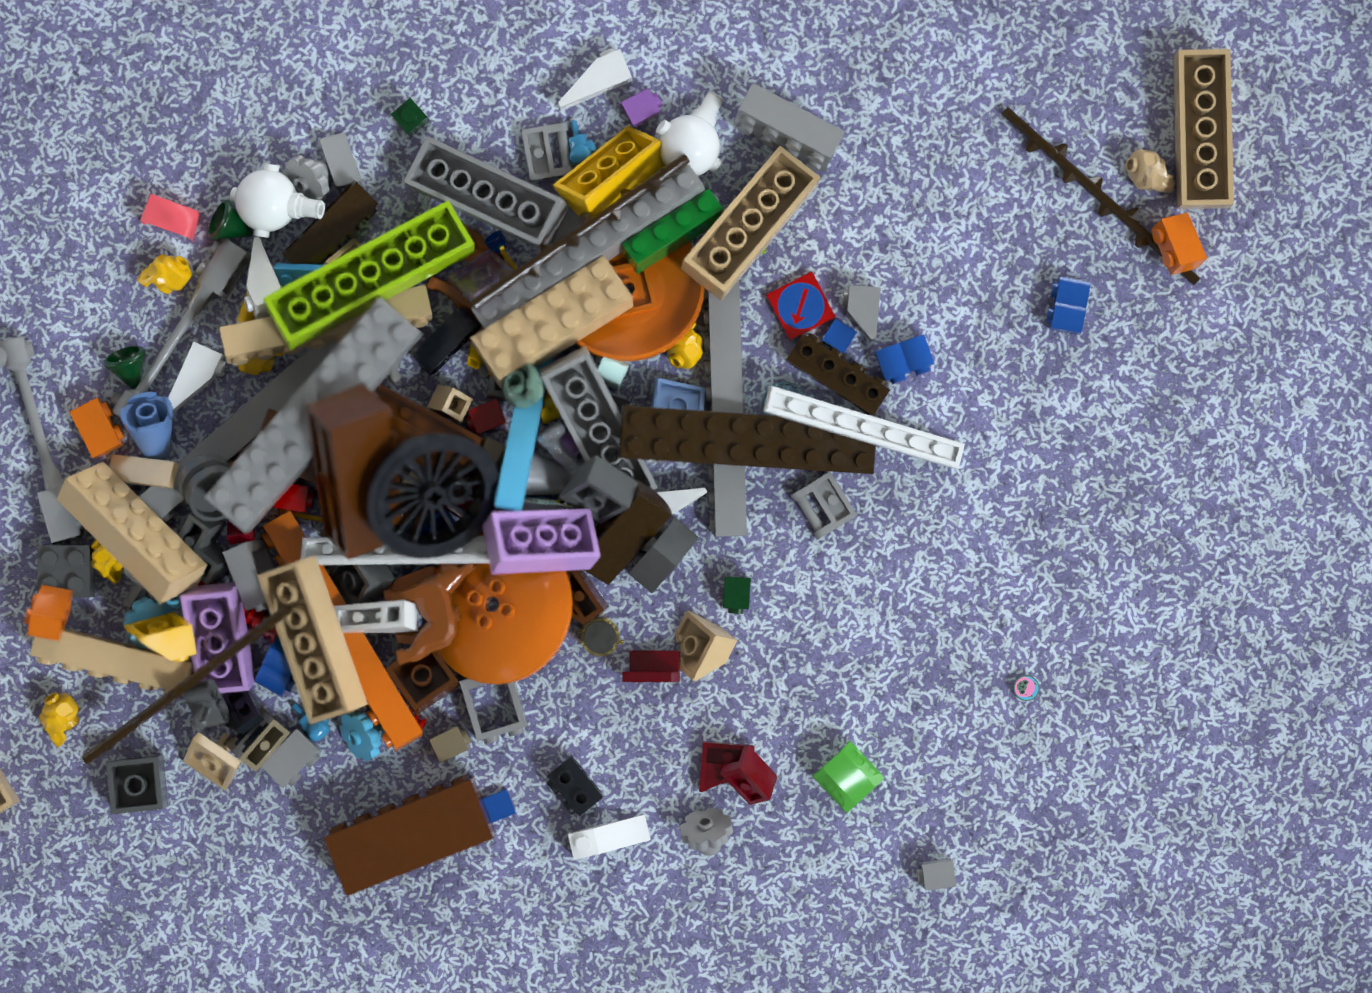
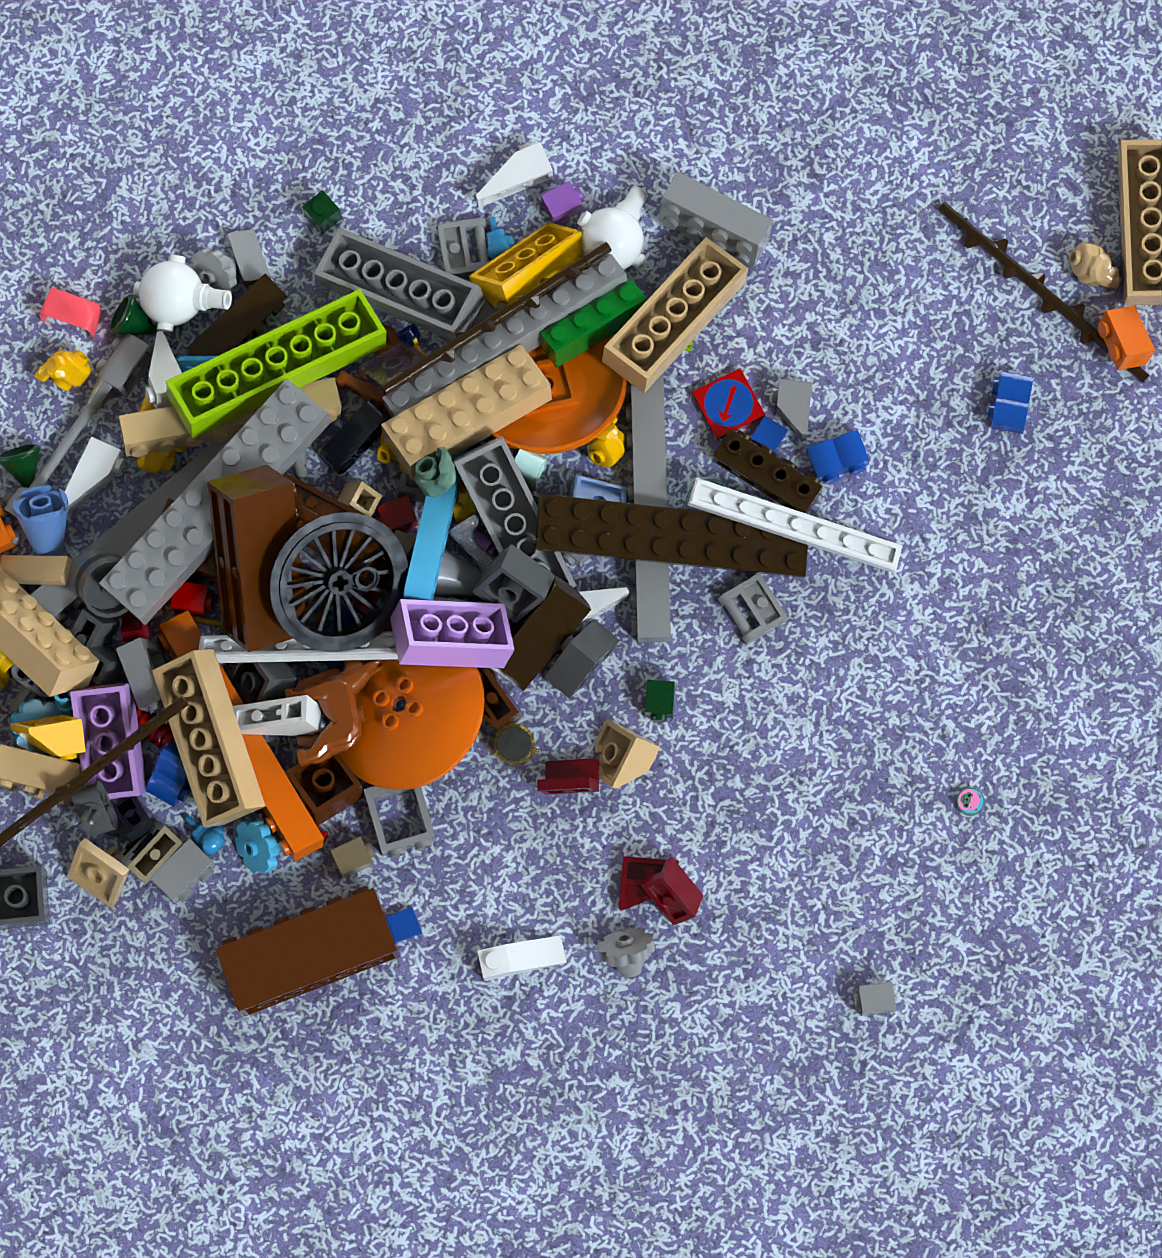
camera: 10 degrees right, 10 degrees down
(574, 786) = (485, 902): black brick -> none
(848, 777) = (779, 894): bright green slope -> none

